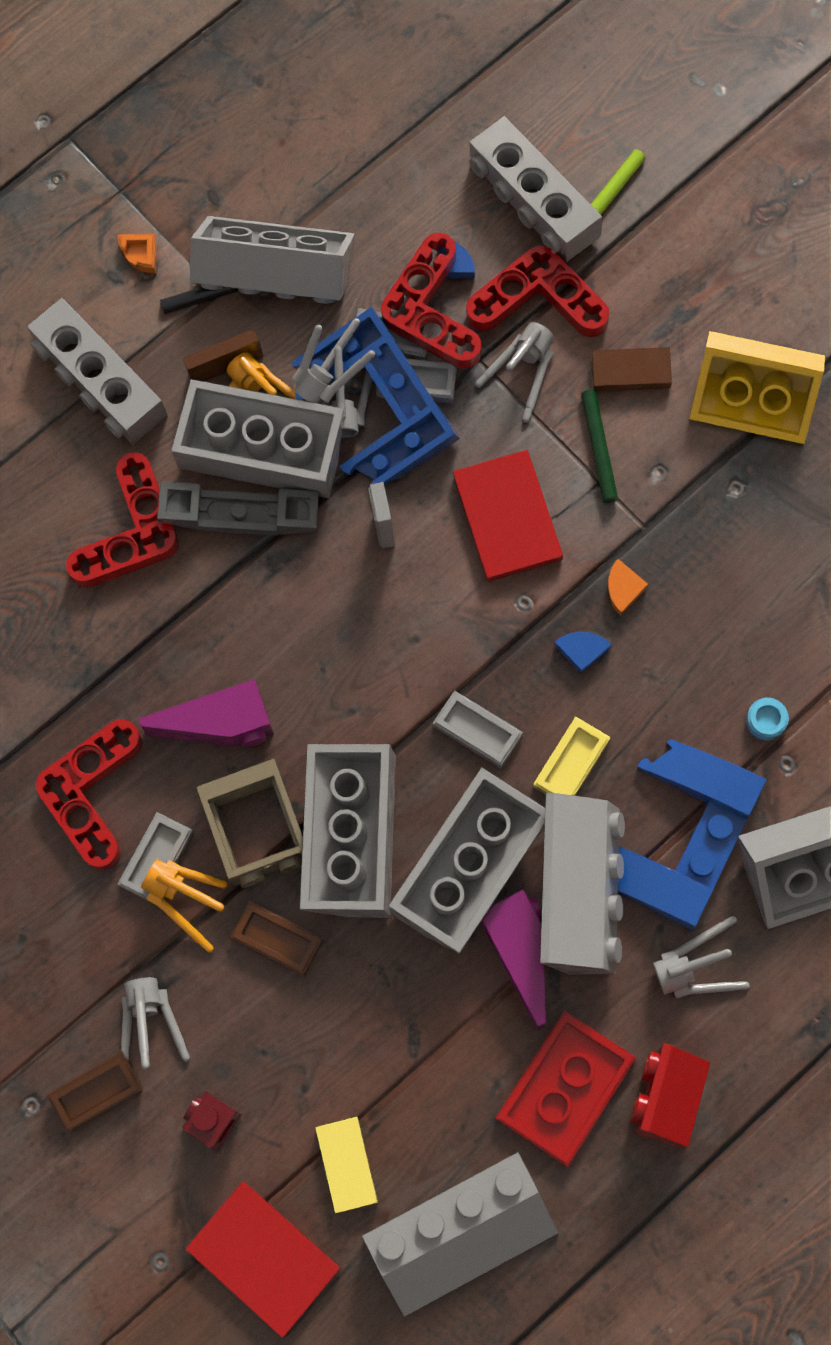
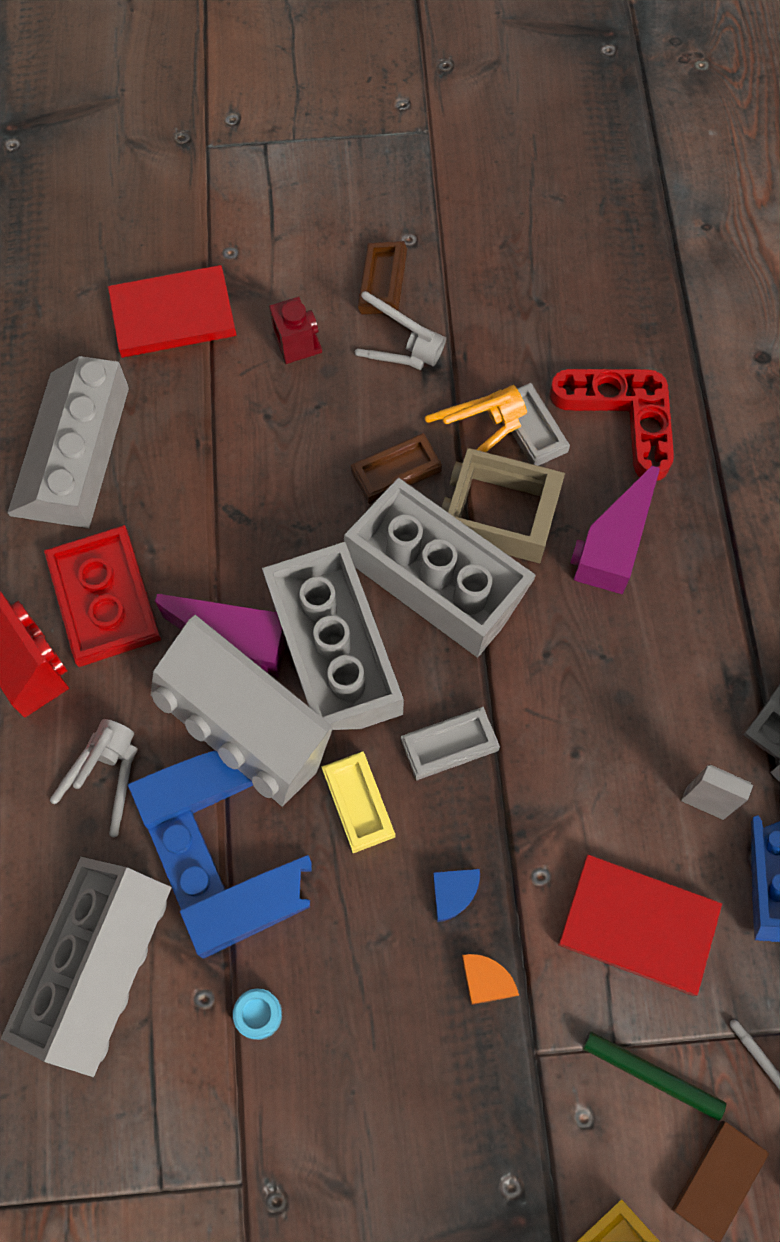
camera: 120 degrees right, 5 degrees down
(346, 1165) = (186, 404): light yellow tile -> none

